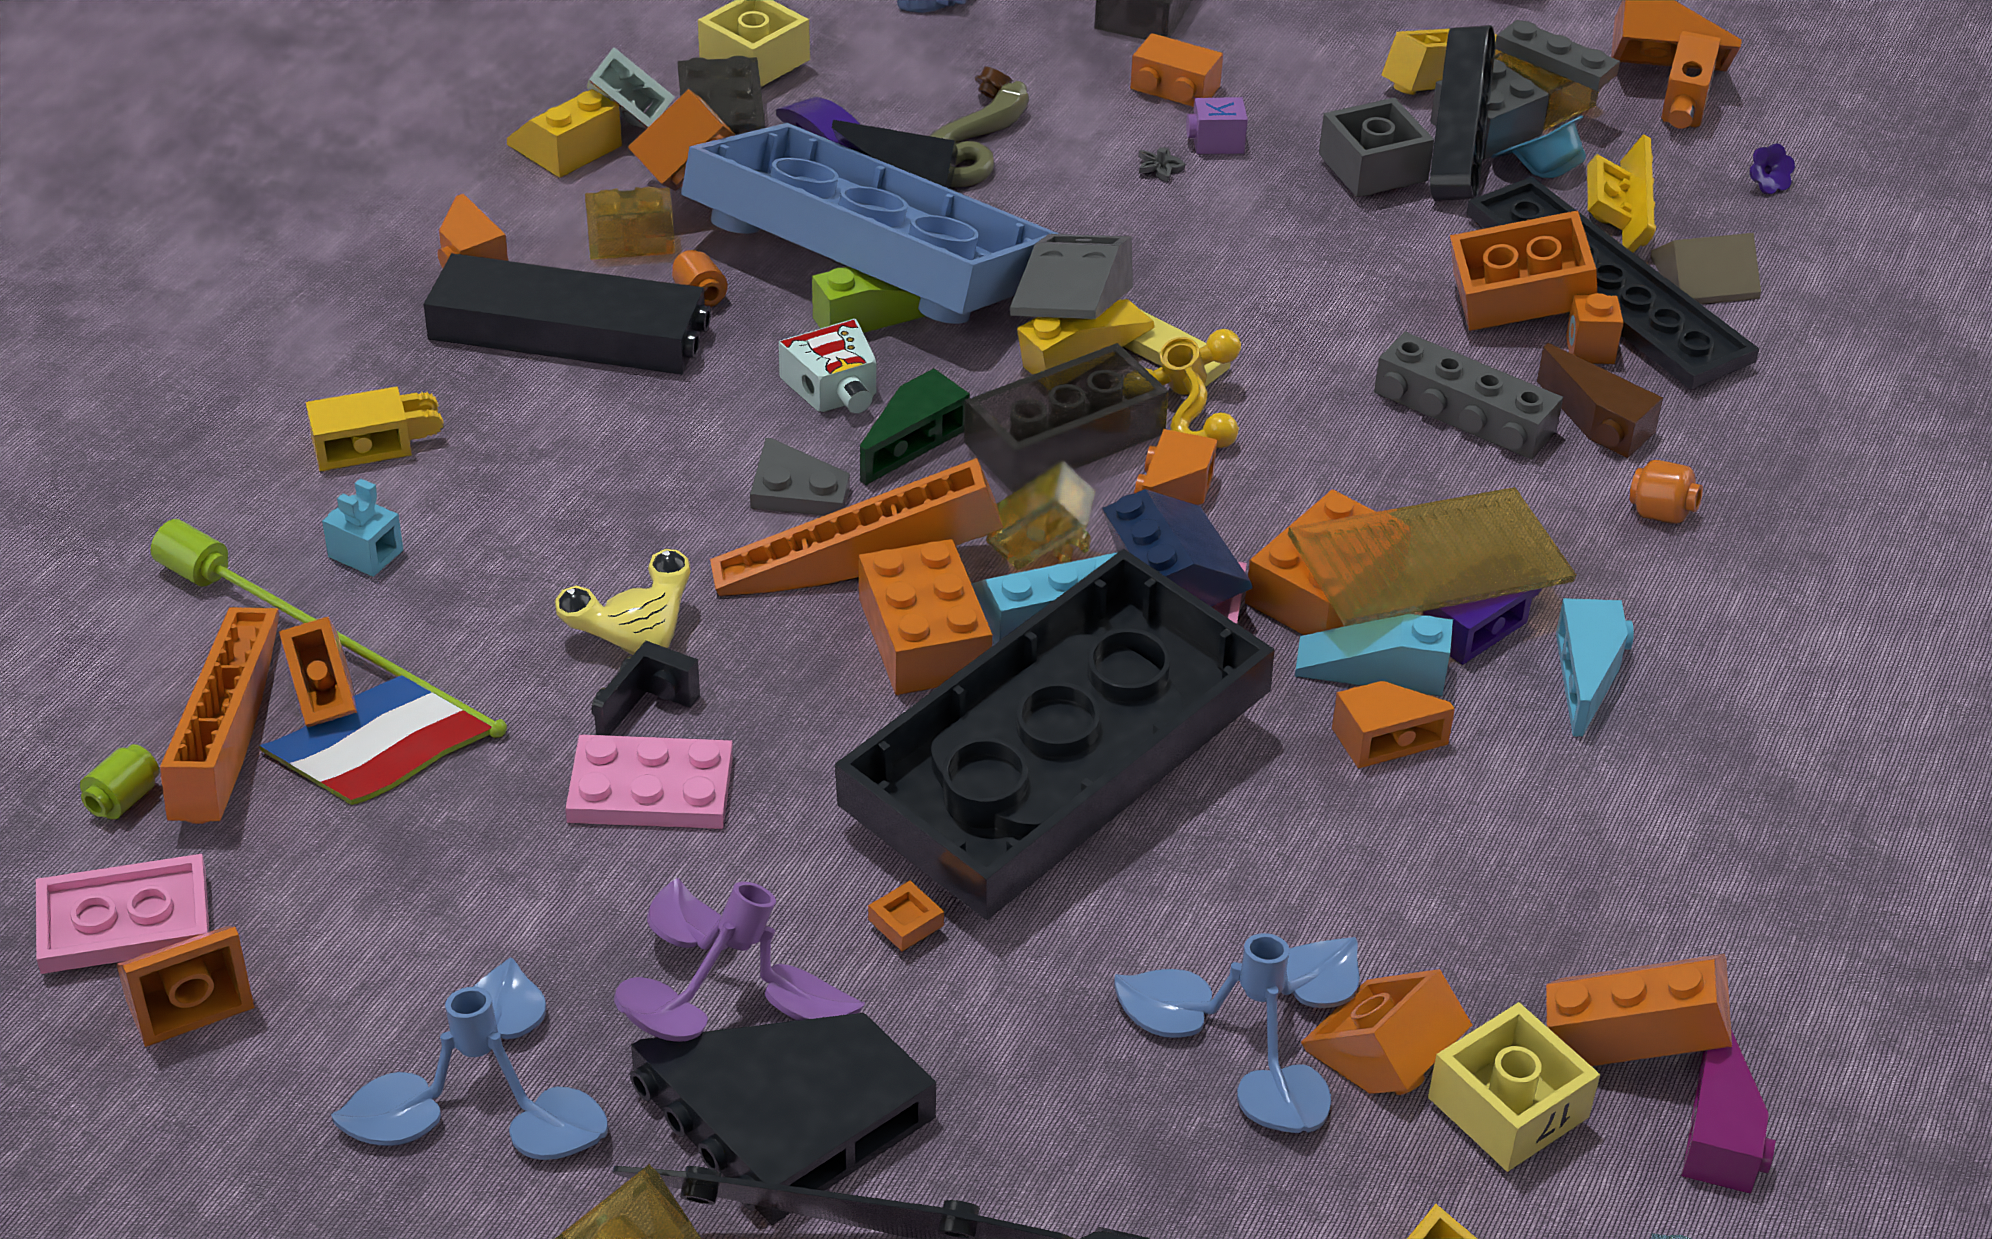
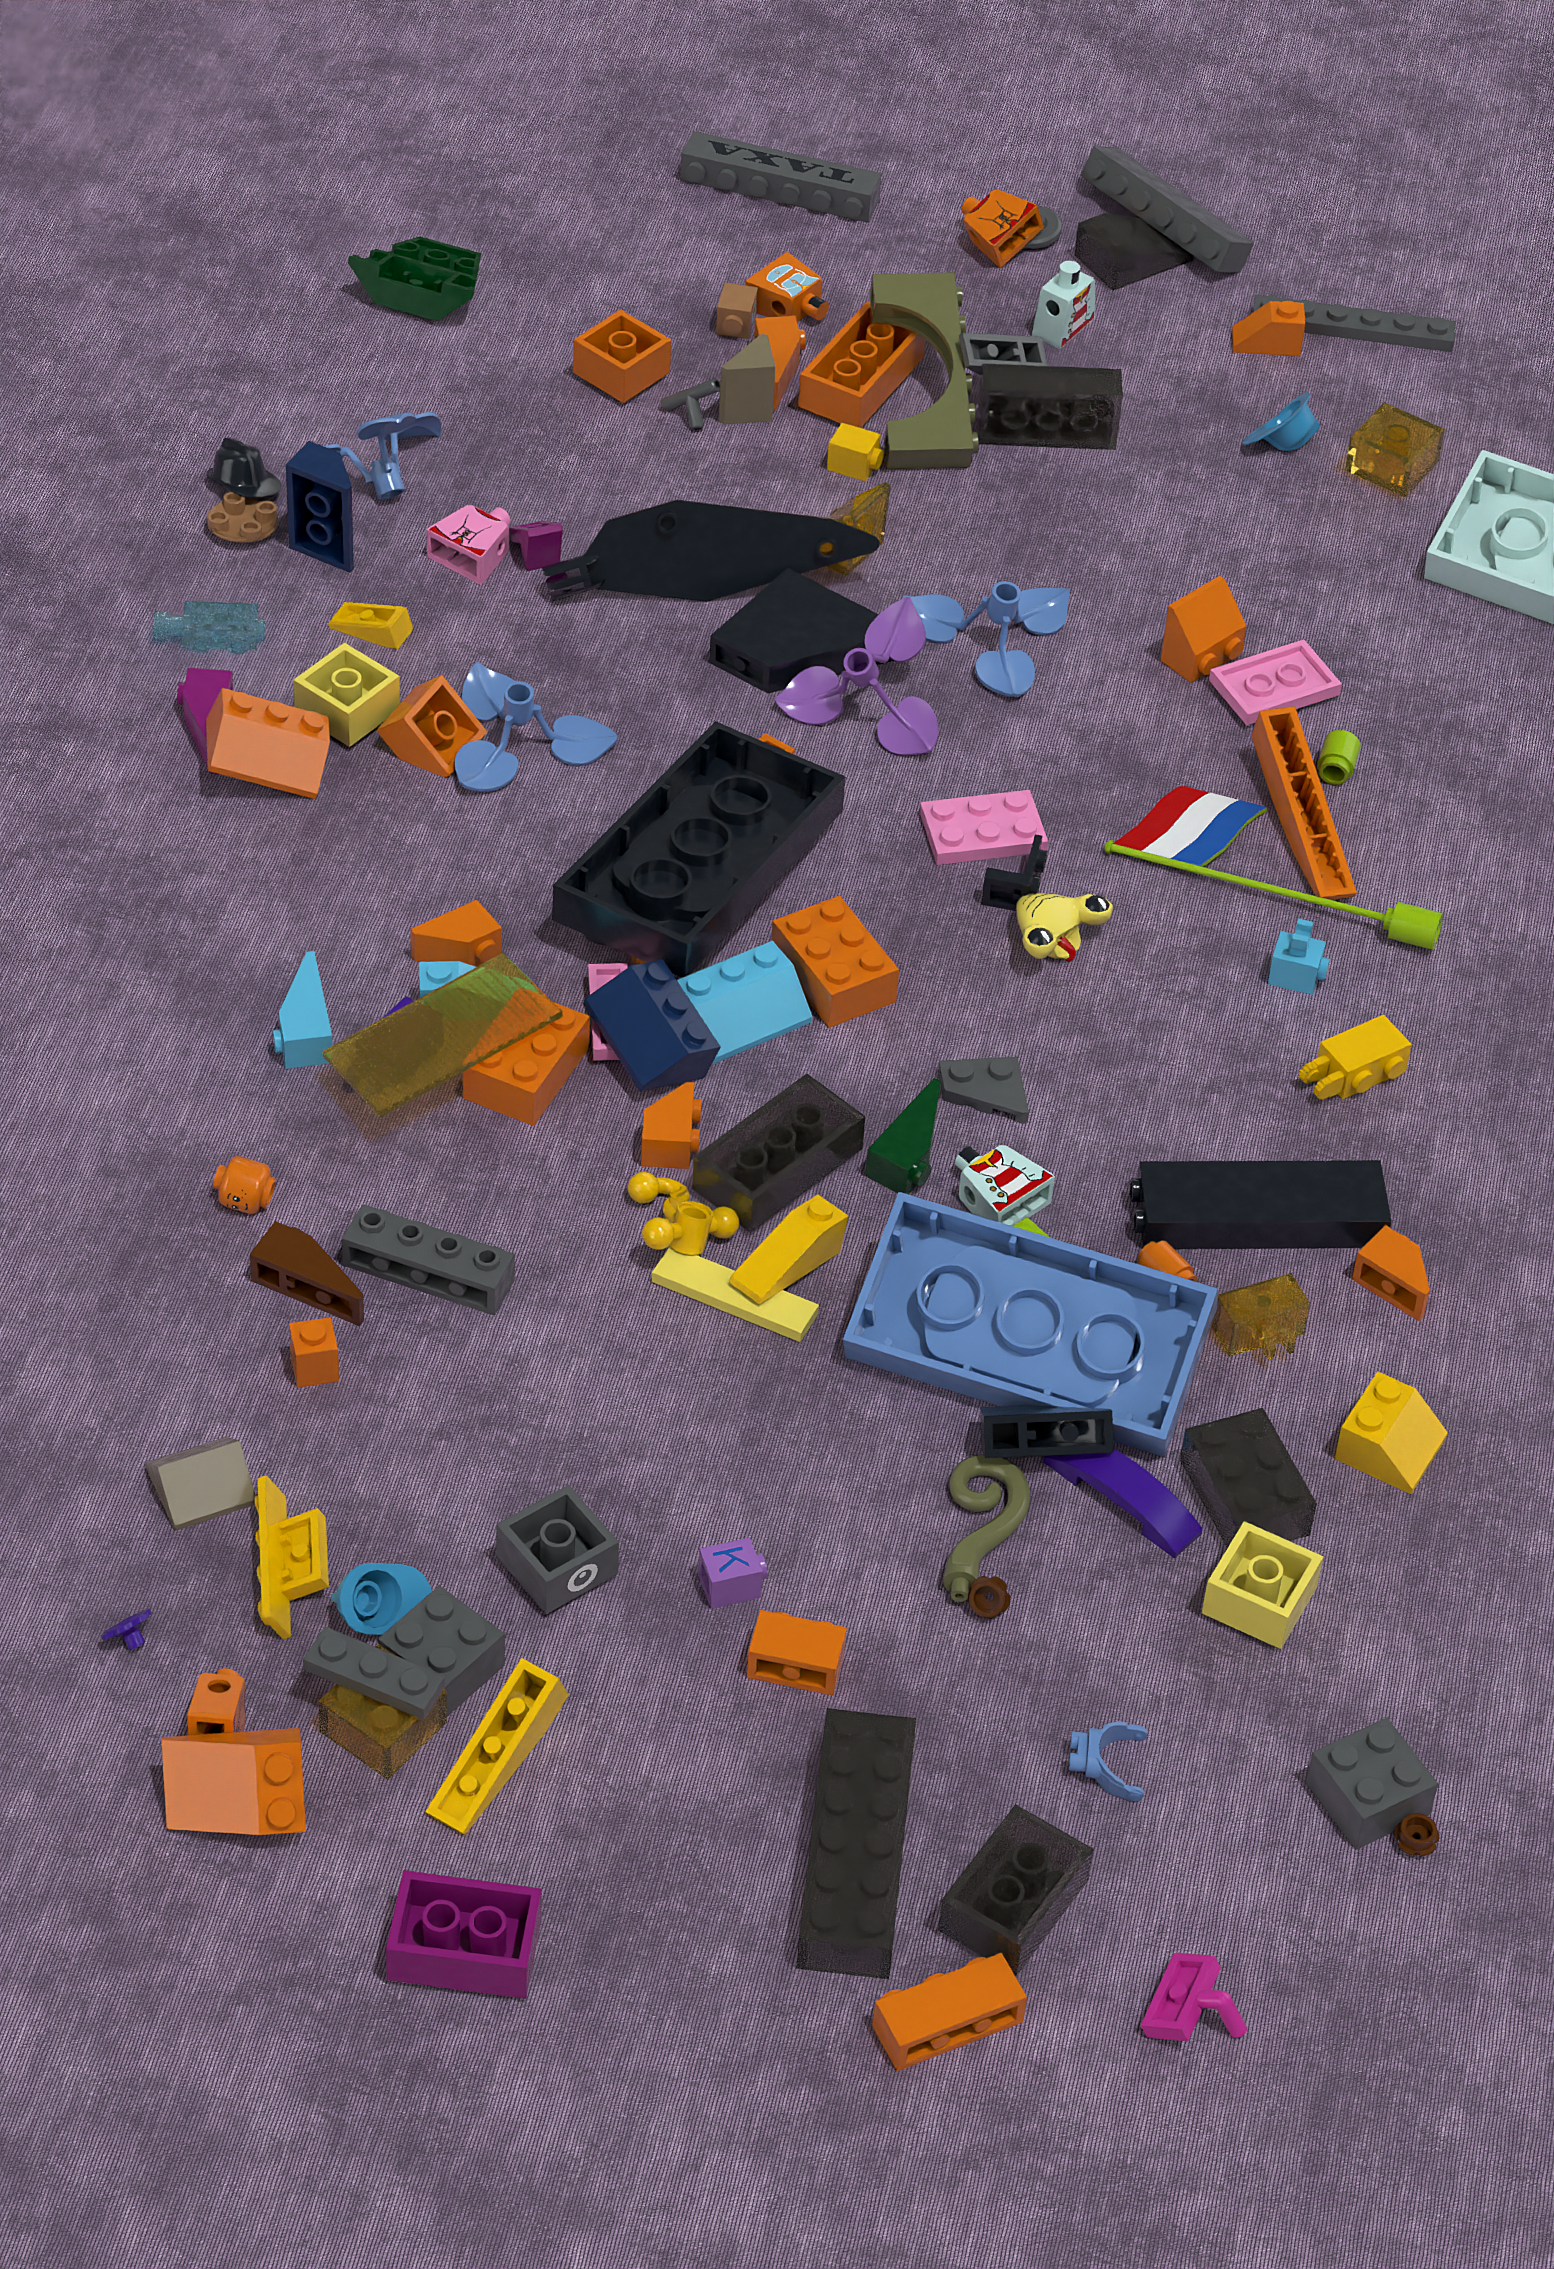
camera: 165 degrees right, 5 degrees up
(319, 671) = (1254, 842): orange slope -> none
(631, 89) = (1348, 1460): light aqua torso -> none
(667, 140) = (1247, 1365): orange brick -> none
(826, 550) = (901, 1009): orange slope -> none
(1045, 517) = (766, 1036): clear yellow brick -> none
(1074, 276) = (811, 1268): dark grey slope -> none
(1162, 164) = (782, 1528): dark grey plant -> none
(1463, 113) = (470, 1574): black beam -> none
(1522, 269) = (388, 1377): orange brick -> none
(1655, 312) = (303, 1437): black plate -> none

